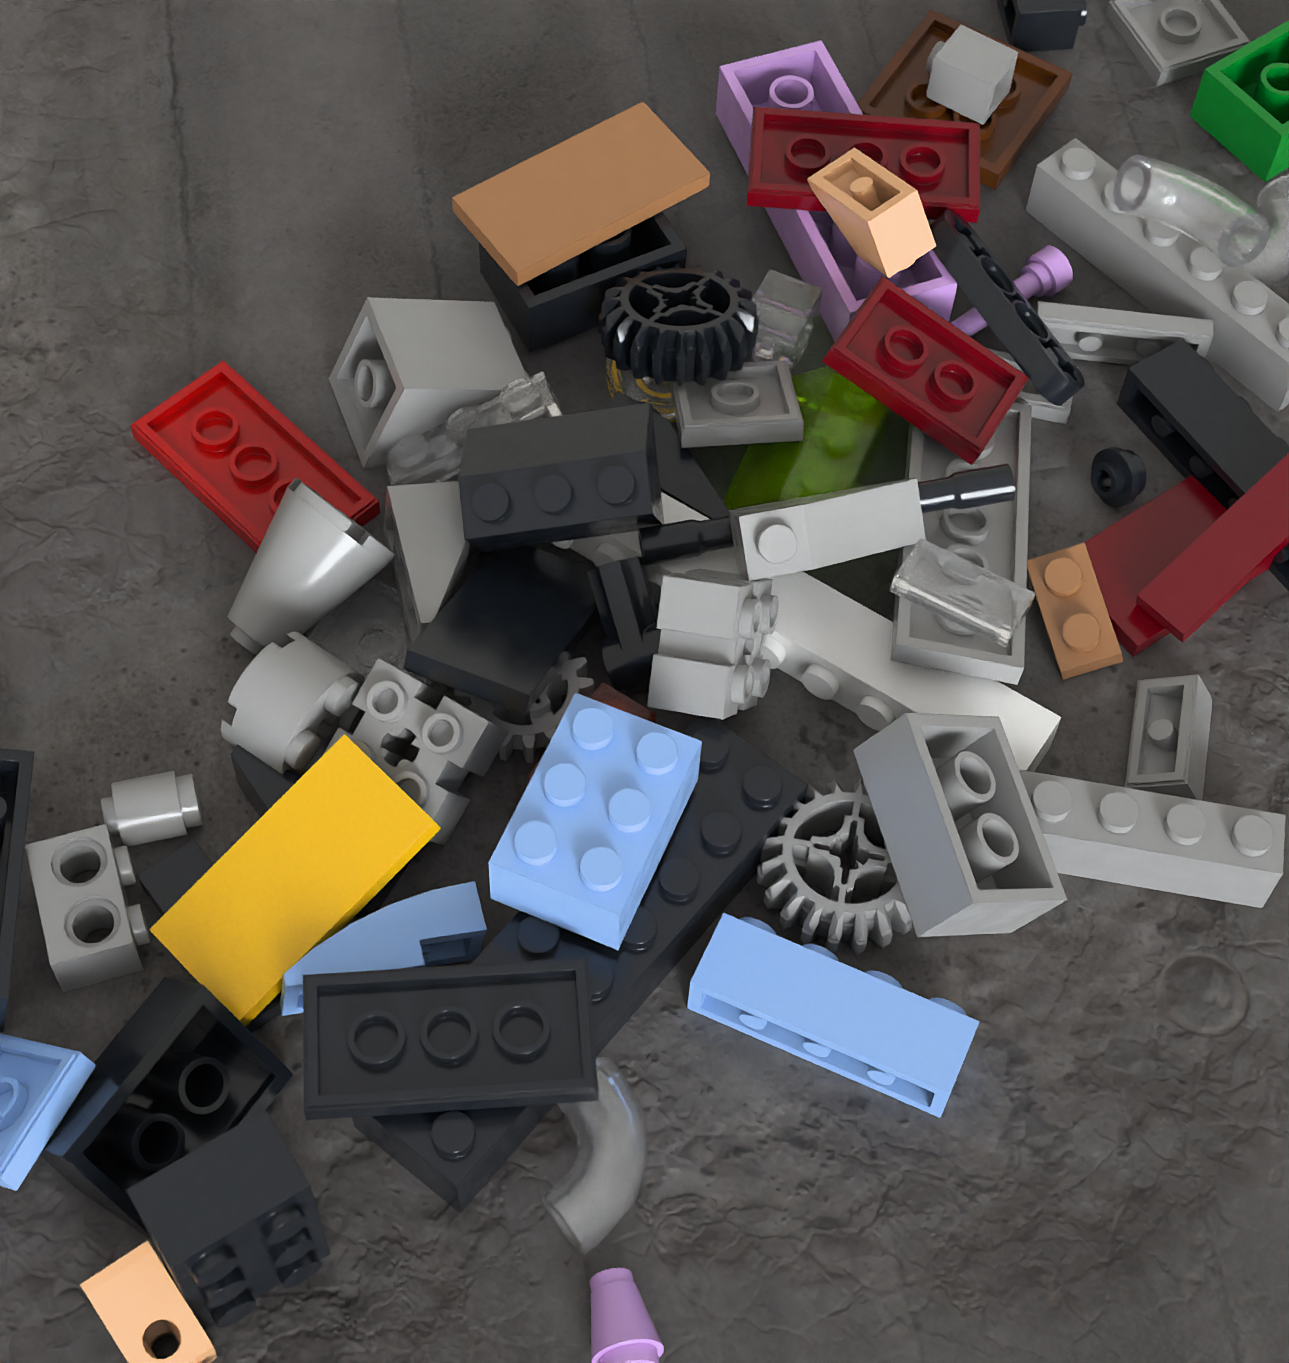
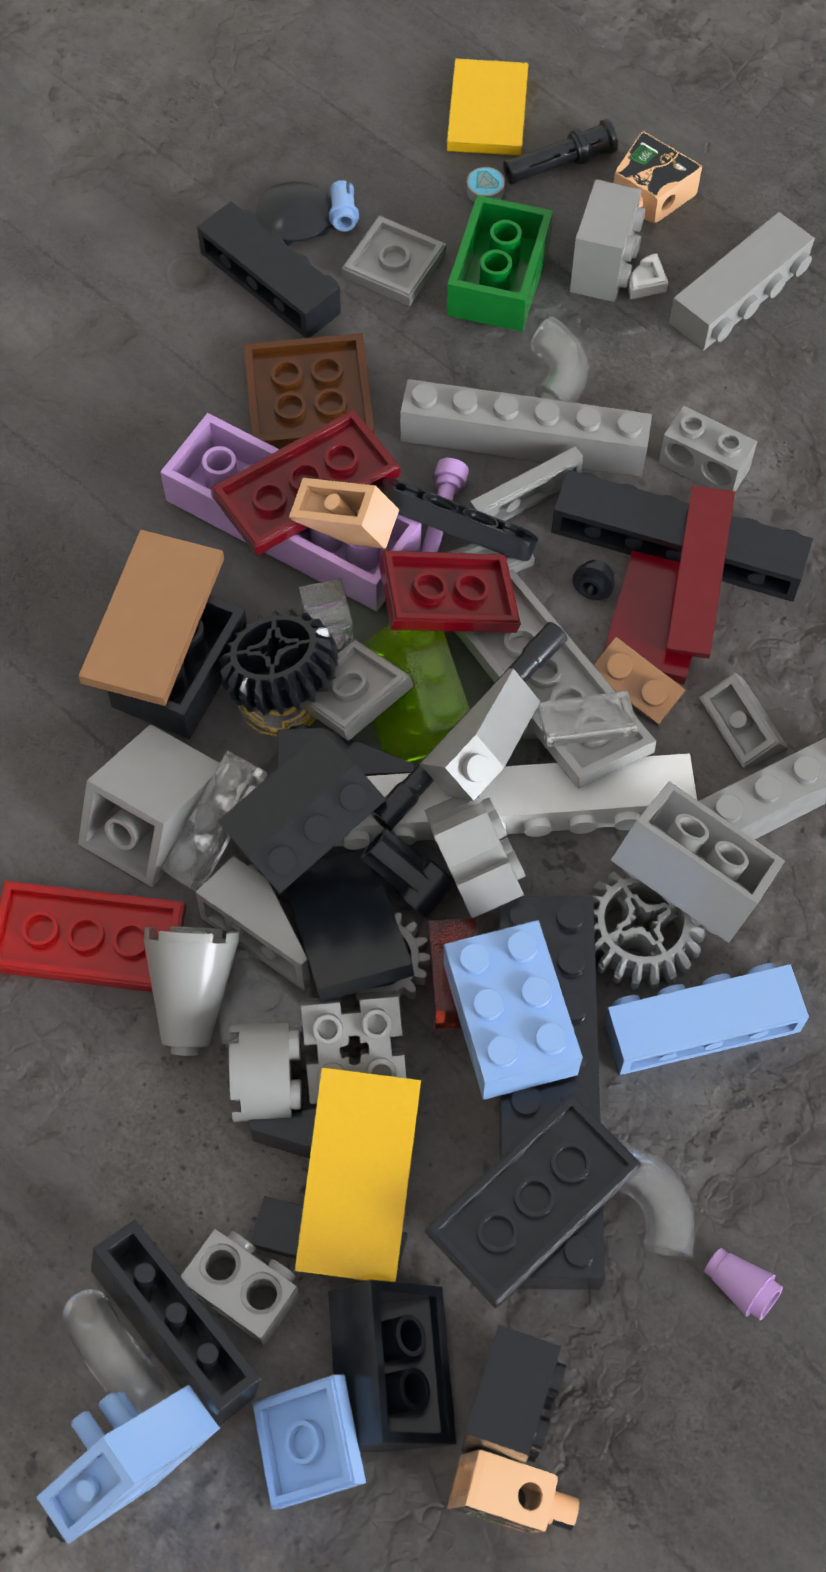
camera: 35 degrees left, 5 degrees up
(152, 808) = (224, 1196): light grey brick -> none
(411, 933) = (443, 1170): light blue slope -> none
(970, 73) = (310, 375): light grey brick -> none
(1193, 207) = (521, 384): clear cylinder -> none

